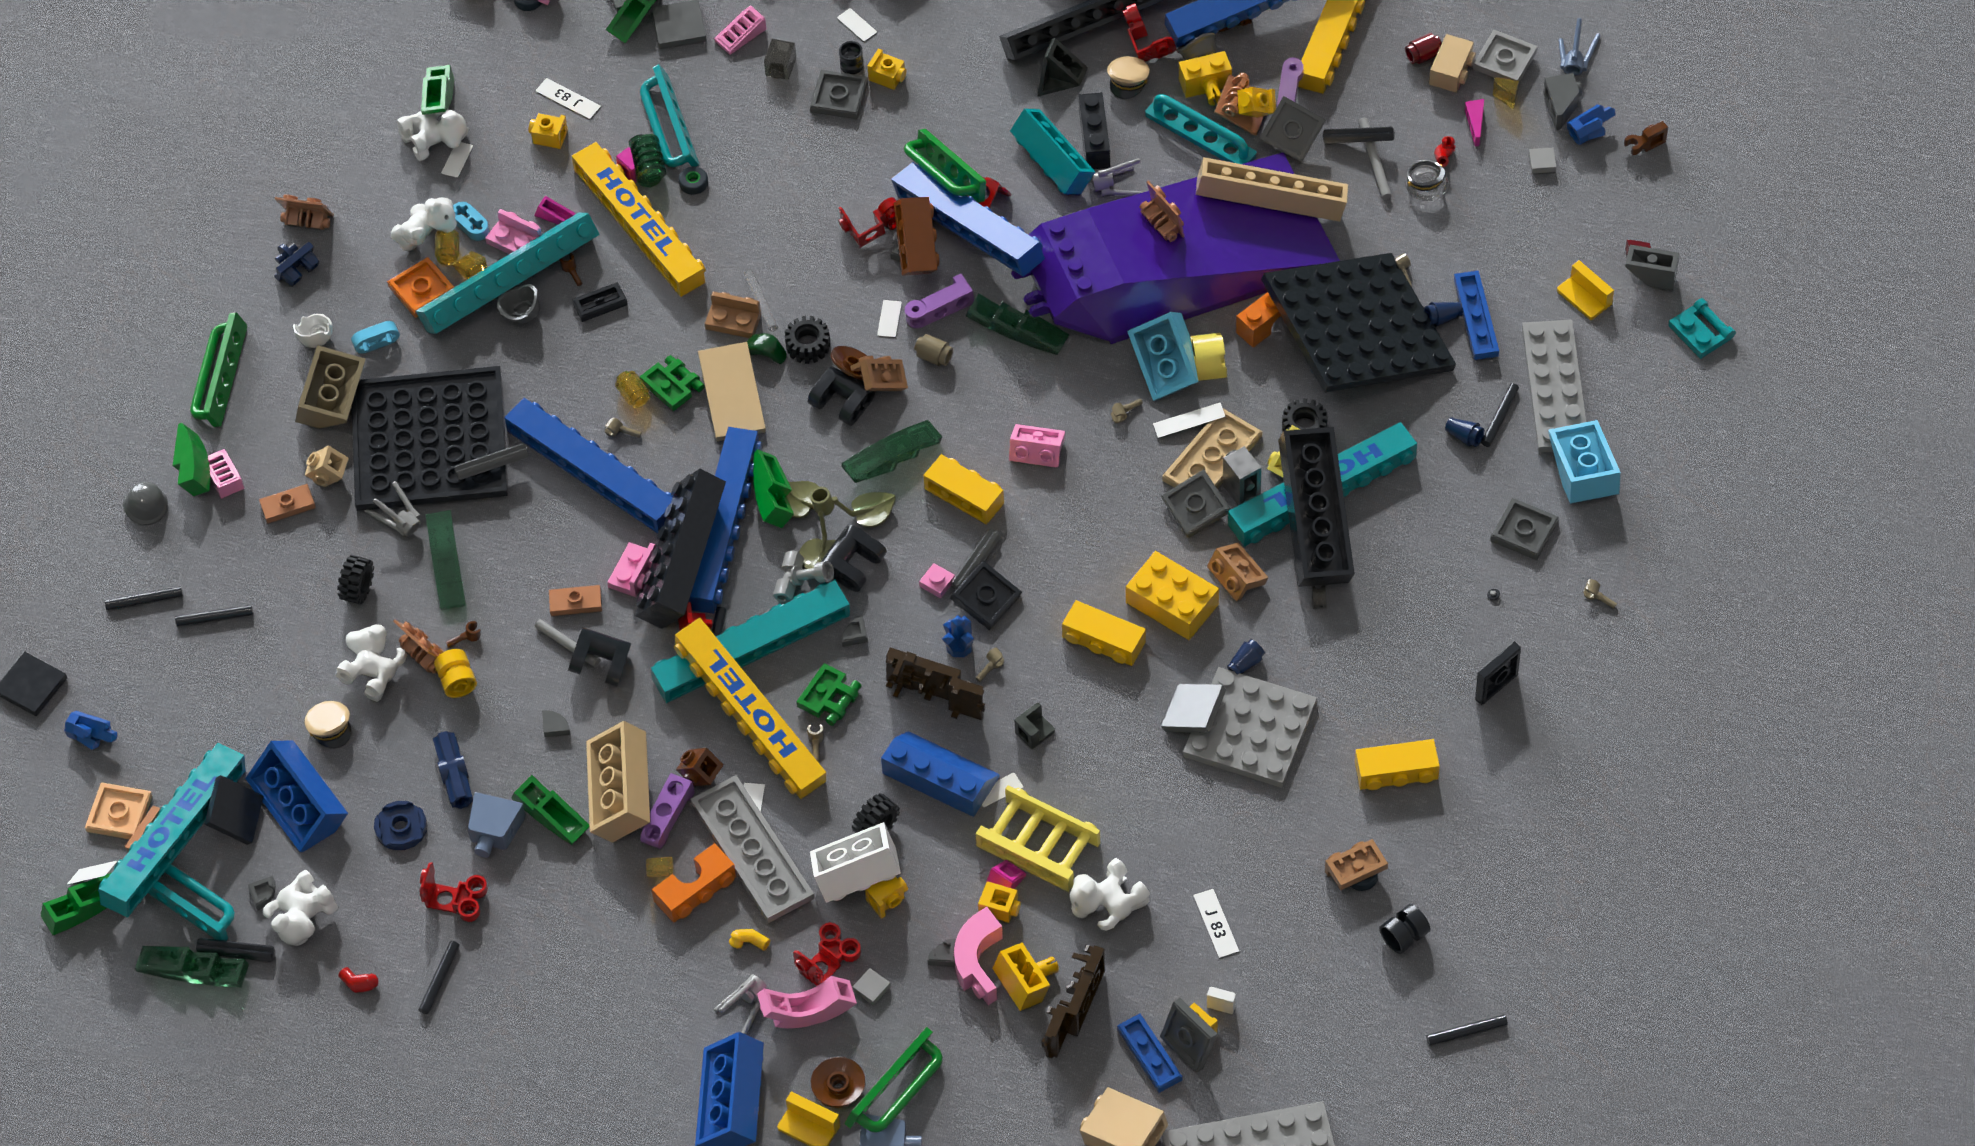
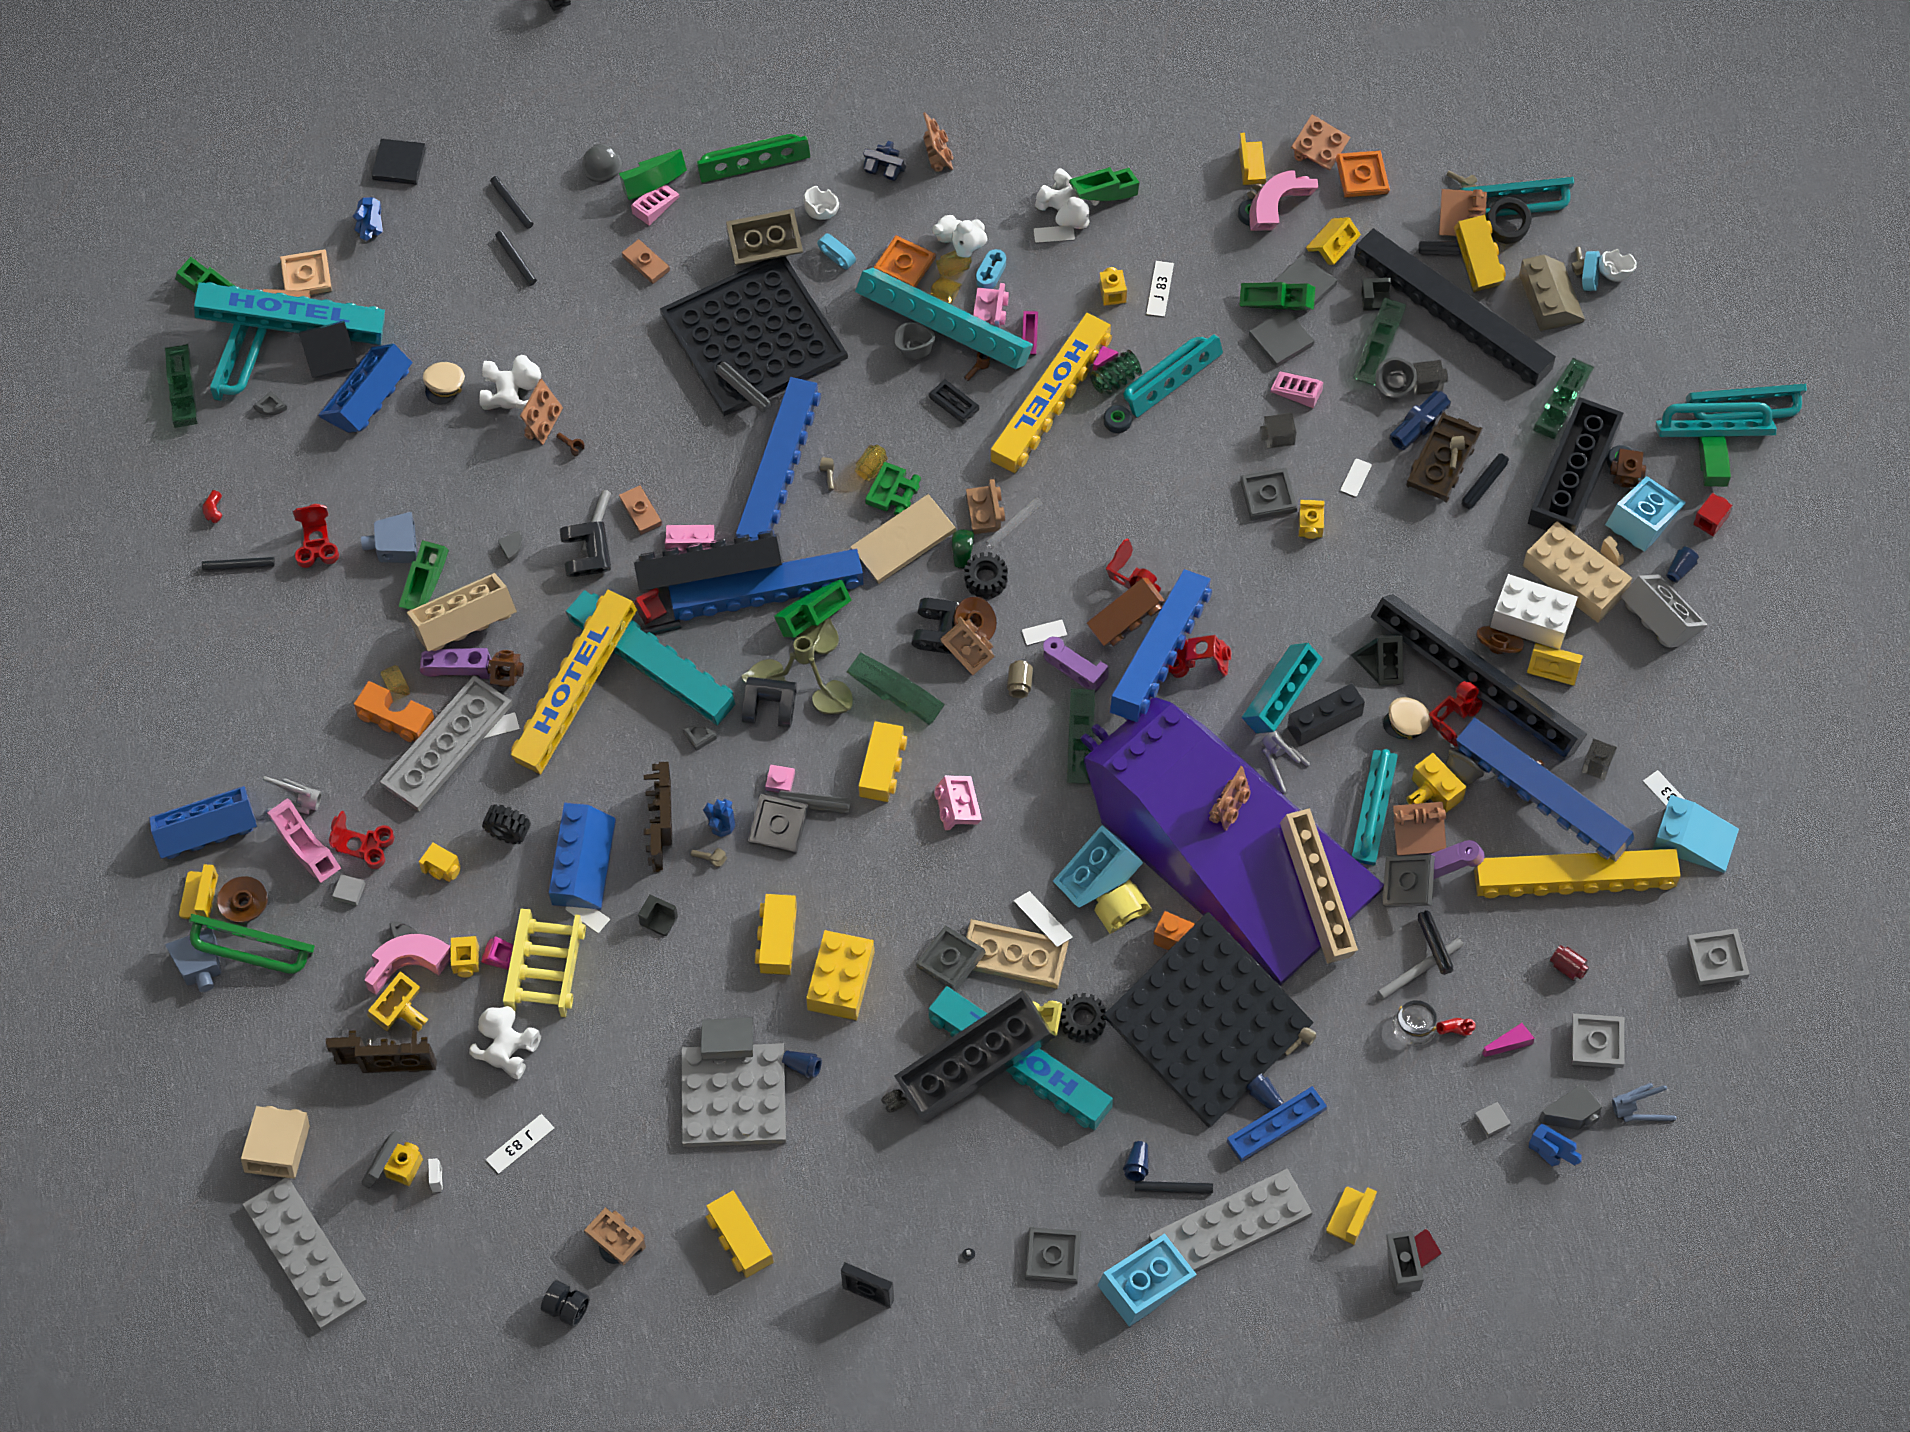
camera: 65 degrees right, 5 degrees up
(92, 872) = (230, 276): white sticker -> none
(236, 949) = (209, 409): black axle -> none
(300, 902) = (259, 435): white animal -> none
(326, 466) = (689, 278): tan brick -> none
(355, 579) = (583, 339): black tyre -> none
(403, 838) = (370, 487): dark blue tile -> none
(405, 522) = (658, 349): light grey plant -> none
(445, 560) = (635, 395): clear green slope -> none
(453, 770) = (434, 489): dark blue piece -> none
(455, 673) = (528, 448): yellow wheel -> none
(748, 935) = (361, 774): yellow arm -> none
(795, 575) = (732, 666): light grey bar -> none
(815, 738) = (576, 749): dark tan hand -> none
(822, 690) = (624, 733): green plate -> none
(851, 57) = (1309, 485): black wheel -> none
(855, 862) = (449, 823): white brick -> none
(937, 156) = (1224, 570): green piece -> none
(1119, 411) = (1025, 856): dark tan hand -> none
(1149, 1053) = (365, 1137): blue tile -> none
(1236, 570) = (895, 1020): medium nougat bracket -> none
(1241, 475) = (989, 982): flat silver brick -> none
(1256, 102) = (1418, 835): yellow brick -> none
(1451, 63) = (1564, 994): tan piece -> none
(1466, 1030) = (486, 1397): black bar -> none
(1506, 91) = (1557, 1057): clear yellow slope -> none
(1592, 592) = (1008, 1340): dark tan hand -> none
(1651, 137) = (1565, 1208): reddish brown plate -> none
(1696, 334) = (1354, 1331): teal plate -> none

